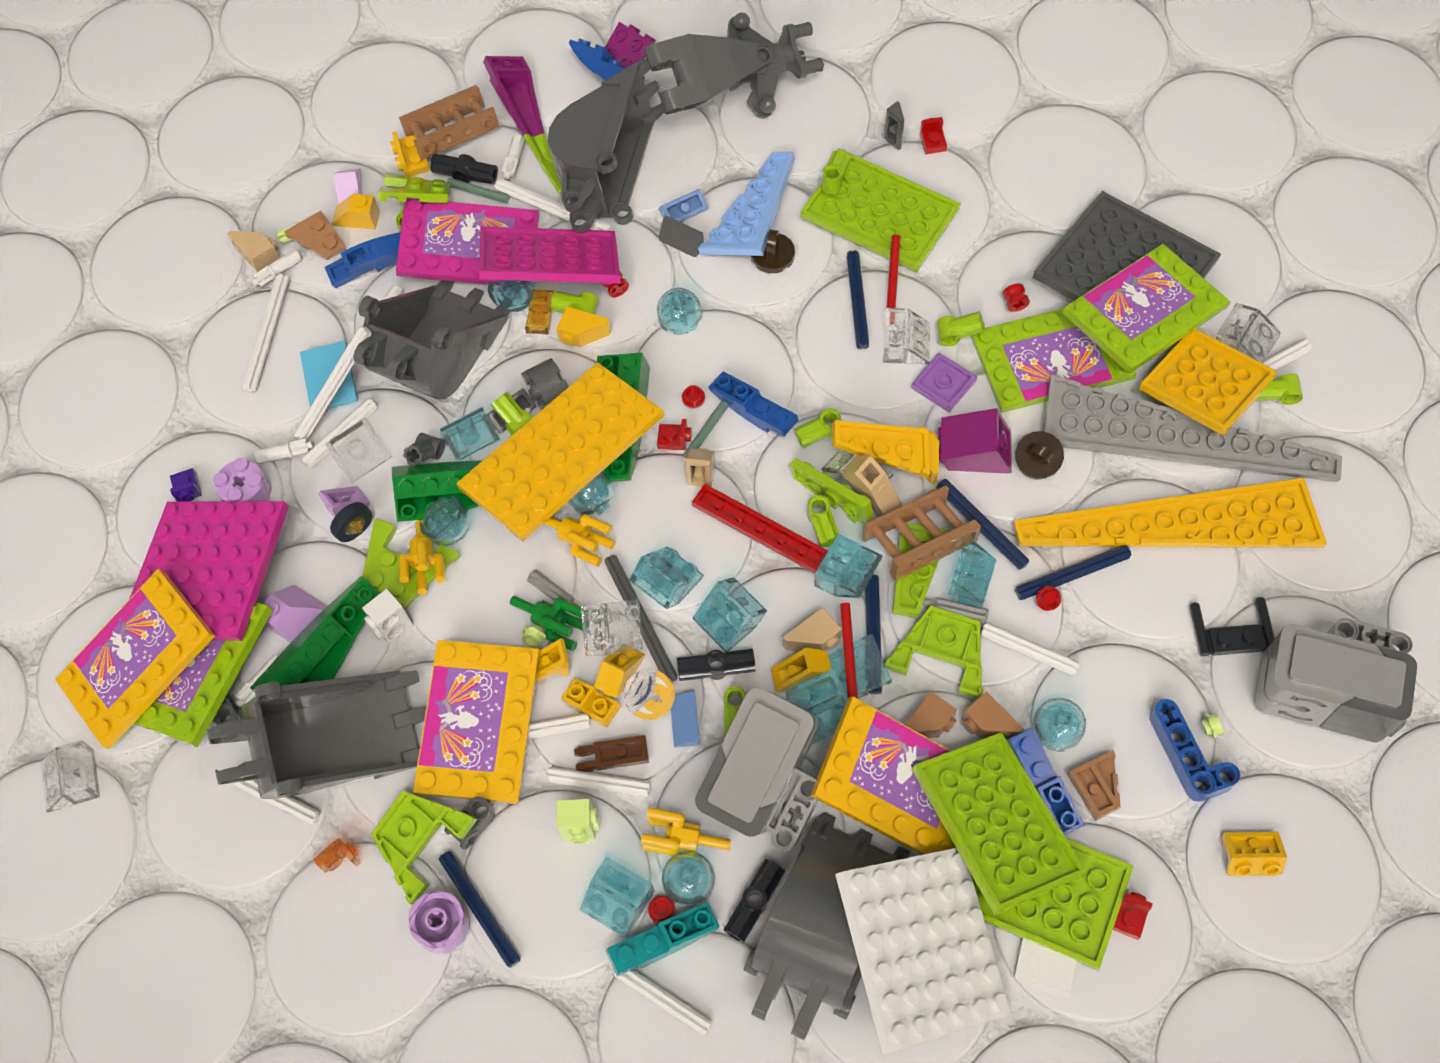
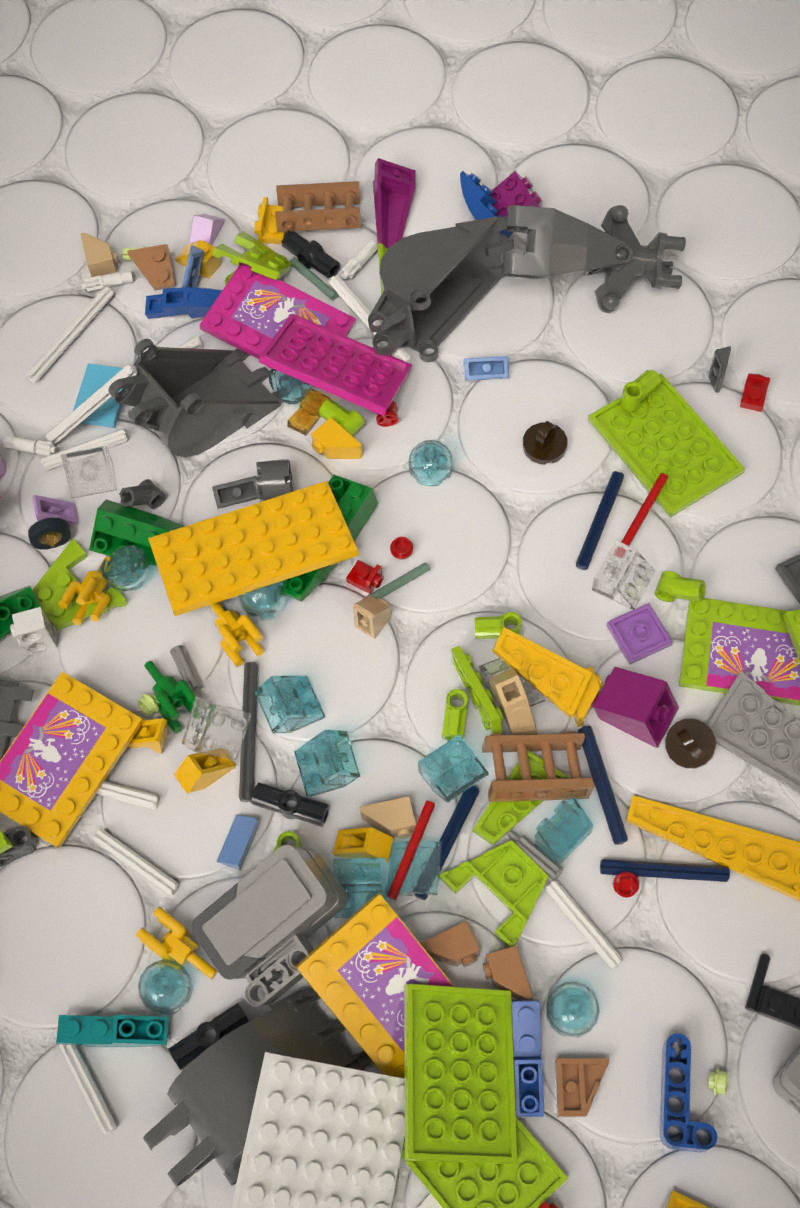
camera: 25 degrees right, 0 degrees up
(357, 222) = (193, 267): none -> medium blue slope
(469, 434) = (187, 498): clear light blue slope -> none
(510, 413) = (232, 493): lime piece -> none
(577, 820) = (94, 888): yellowish green brick -> none
(588, 700) = (166, 787): yellow slope -> none
(613, 754) = (161, 843): reddish brown hinge -> none
(616, 897) = (94, 973): clear light blue slope -> none
(649, 694) = (218, 804): clear tile -> none
(661, 909) = (128, 1003): red plate -> none
(680, 236) = (468, 394): dark grey slope -> none
(751, 215) = (546, 397): light blue wing -> none
(752, 406) = (449, 579): blue slope -> none
(759, 528) = (395, 695): red plate -> none
(1016, 298) = (750, 581): red wheel -> none

